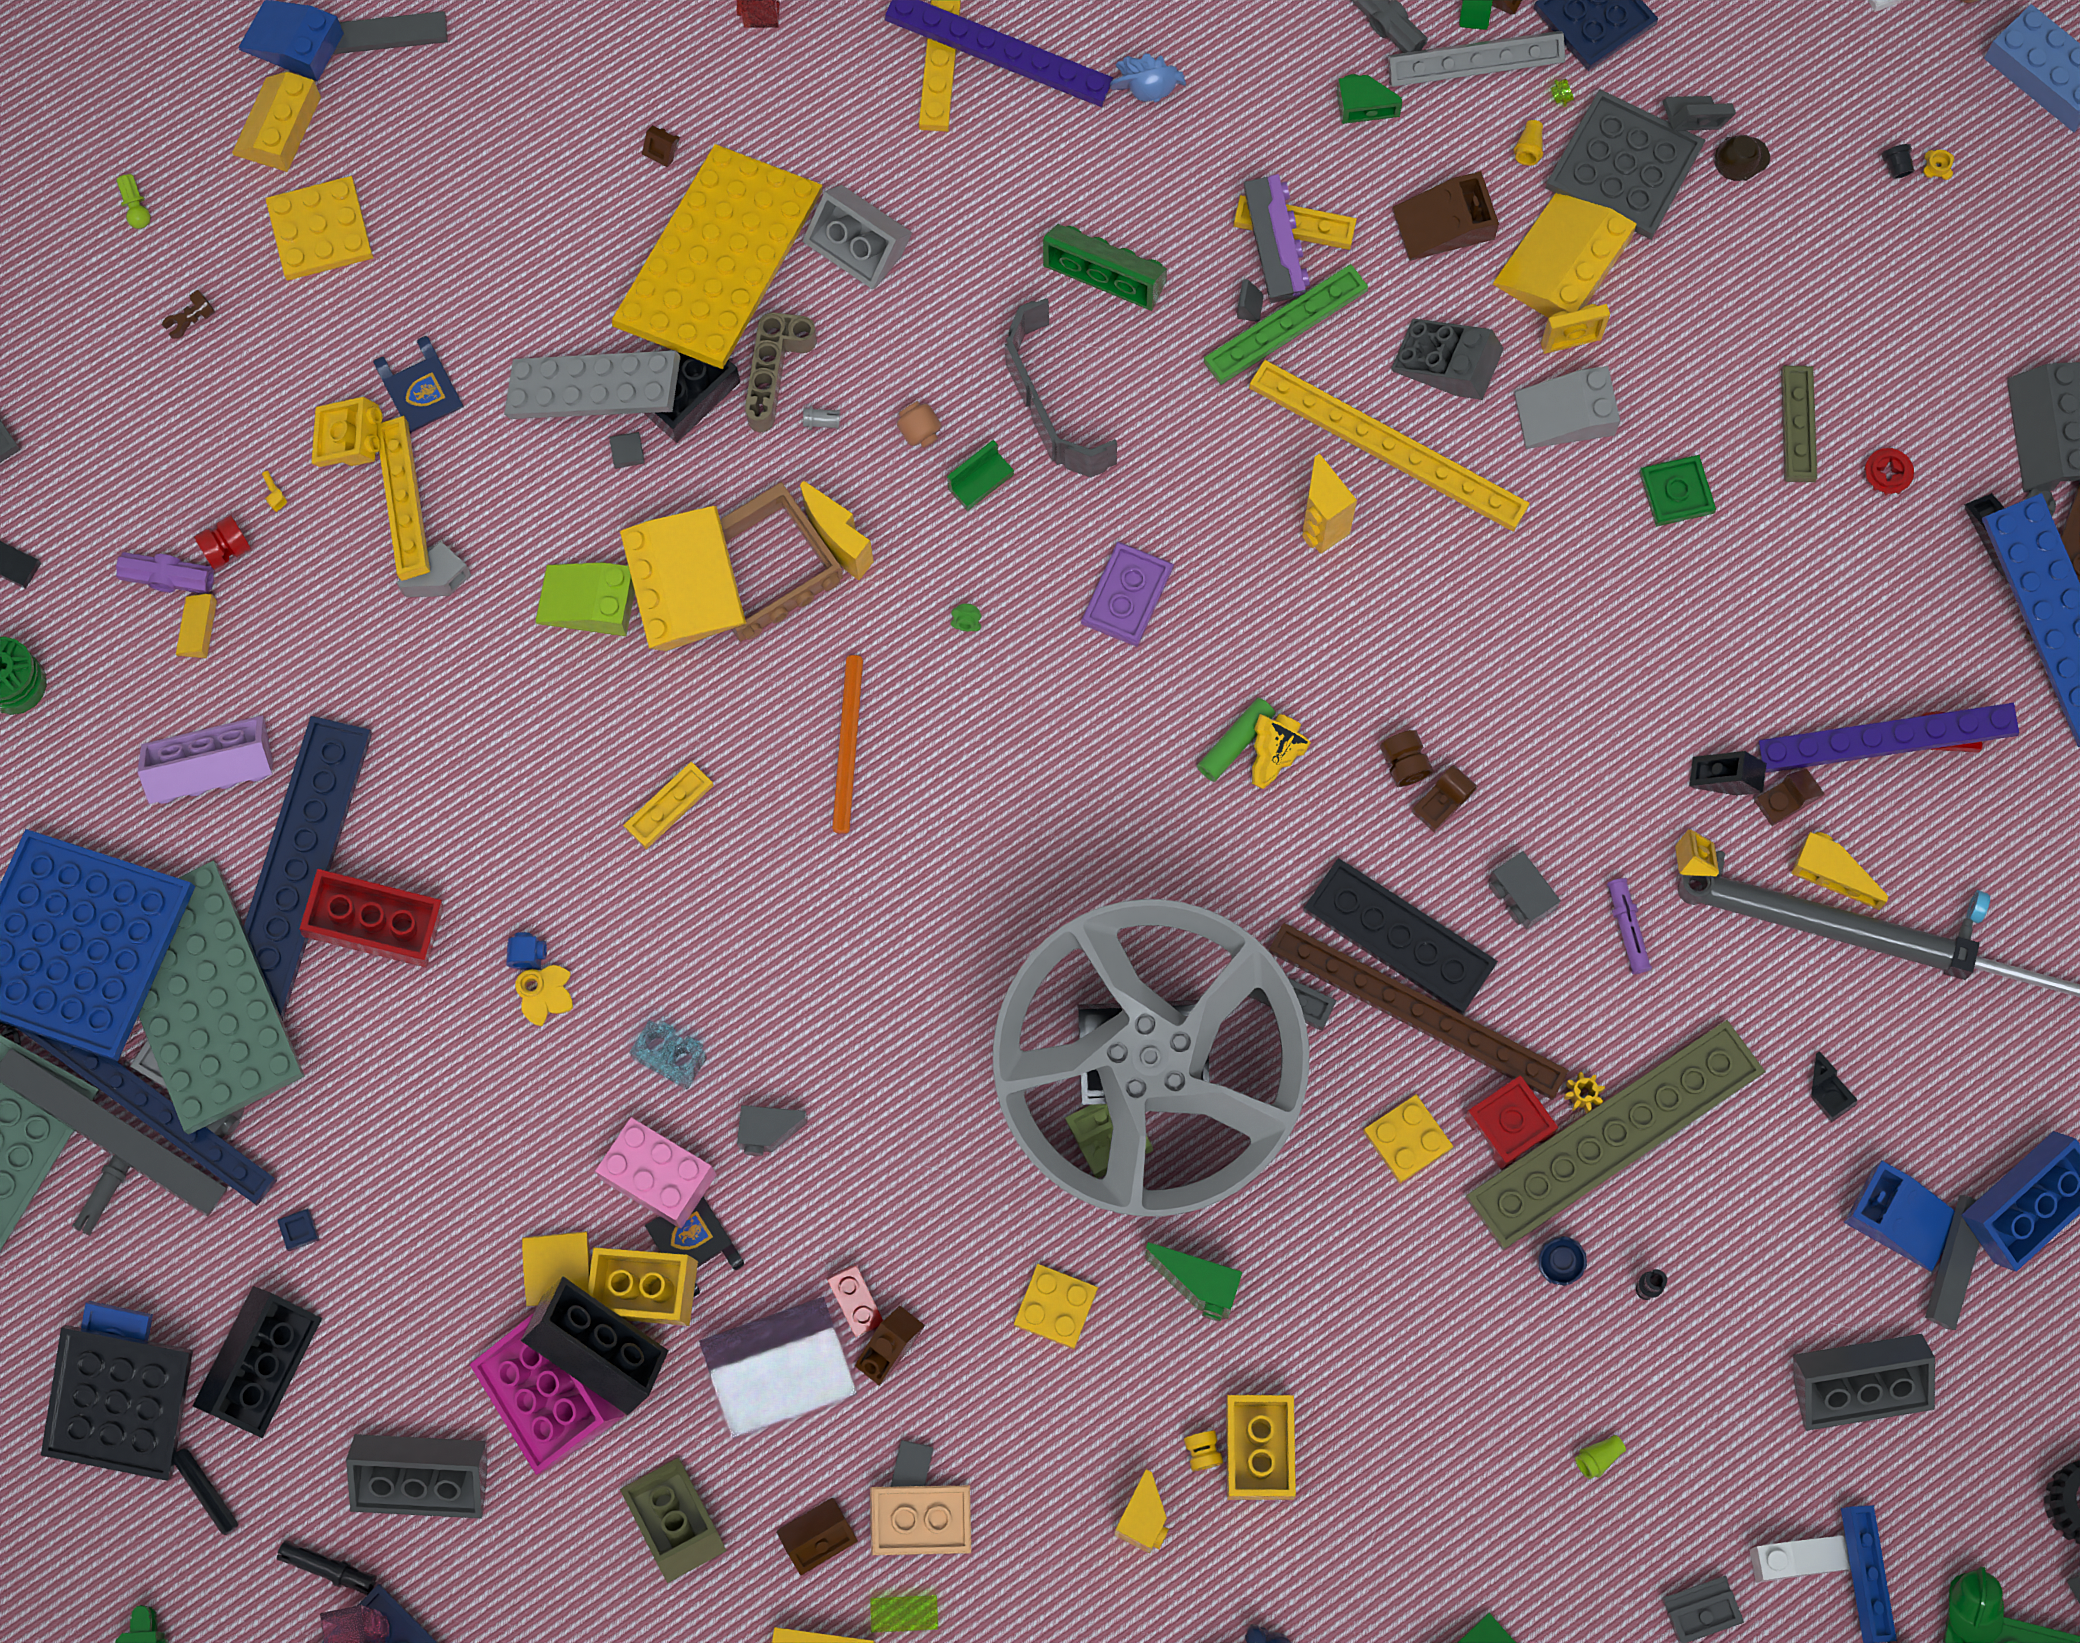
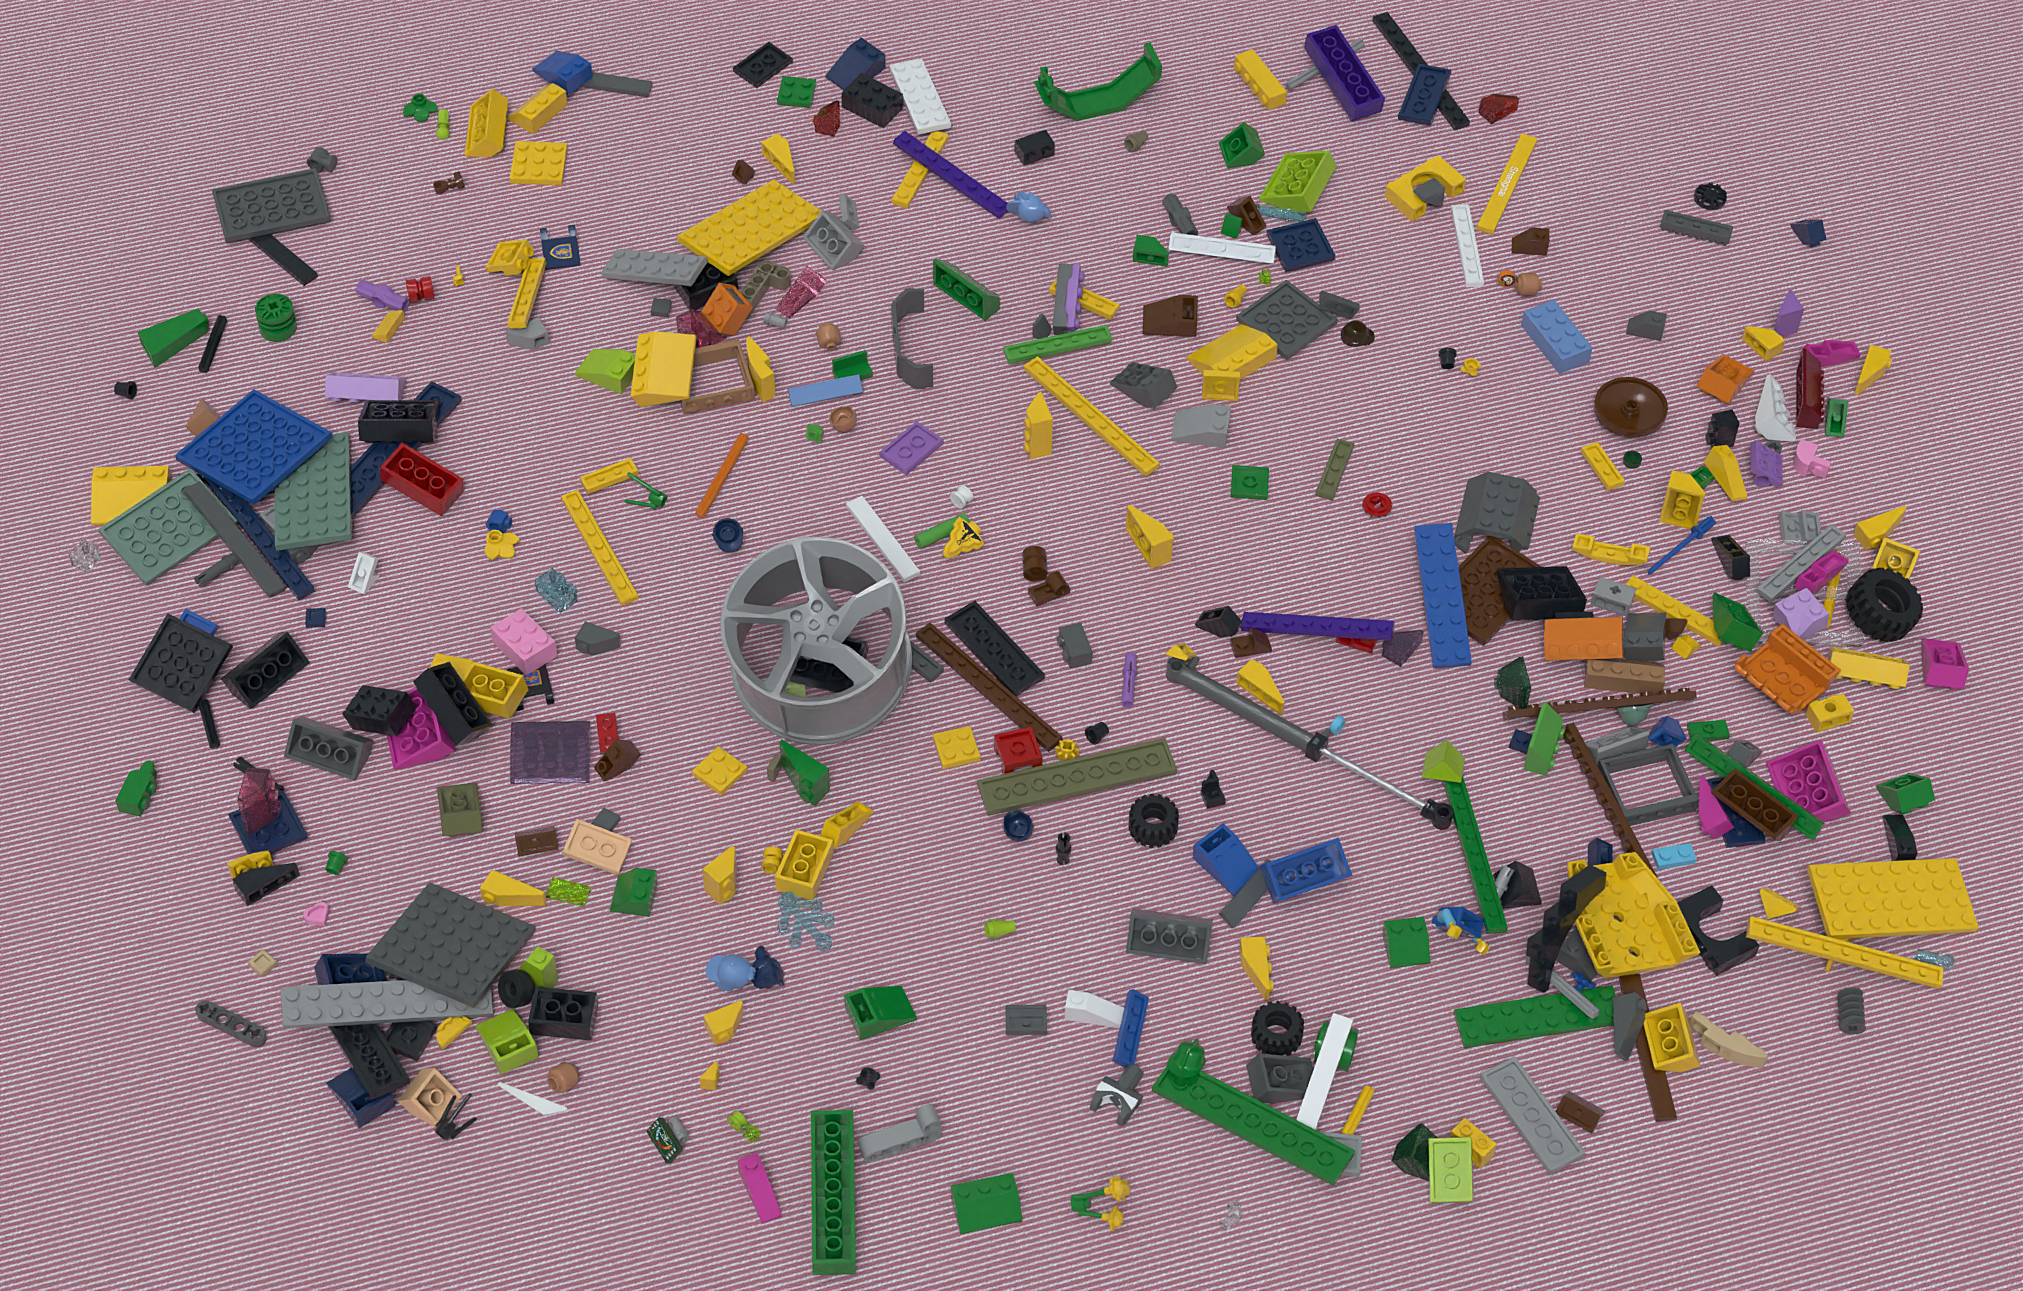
camera: 15 degrees right, 20 degrees down
(83, 183) = (419, 108): none -> green plate
(206, 183) = (486, 125): none -> yellow slope
(289, 815) = (398, 421): none -> black slope
(345, 1125) = (363, 573): none -> white slope
(477, 1388) = (379, 710): none -> black brick
(704, 91) = (778, 153): none -> yellow slope
(704, 945) = (599, 547): none -> yellow tile
(709, 477) = (697, 324): none -> clear pink slope
(741, 430) = (727, 309): none -> orange piece
(761, 822) = (655, 497): none -> green plant
(843, 354) = (801, 292): none -> clear pink slope
(860, 171) = (848, 212): none -> light grey plate
(904, 861) = (728, 534): none -> dark blue hat
(952, 530) = (825, 390): none -> medium blue tile
(1001, 577) = (843, 418): none -> nougat hair
(1009, 1584) = (635, 892): none -> green slope
(1142, 1276) = (774, 767): none -> dark tan tile
(1147, 783) = (883, 539): none -> white tile
(1243, 666) = (961, 497): none -> white wheel
(1290, 1541) = (804, 919): none -> clear light blue plant
(1293, 1343) = (845, 823): none -> yellow slope
(1569, 654) = (1150, 537): none -> yellow slope
(1616, 1042) = (1096, 733): none -> black piece
(1784, 1163) = (1157, 808): none -> black tyre
(2010, 1384) = (1254, 962): none -> yellow slope
(2031, 722) = (1402, 646): none -> clear purple slope

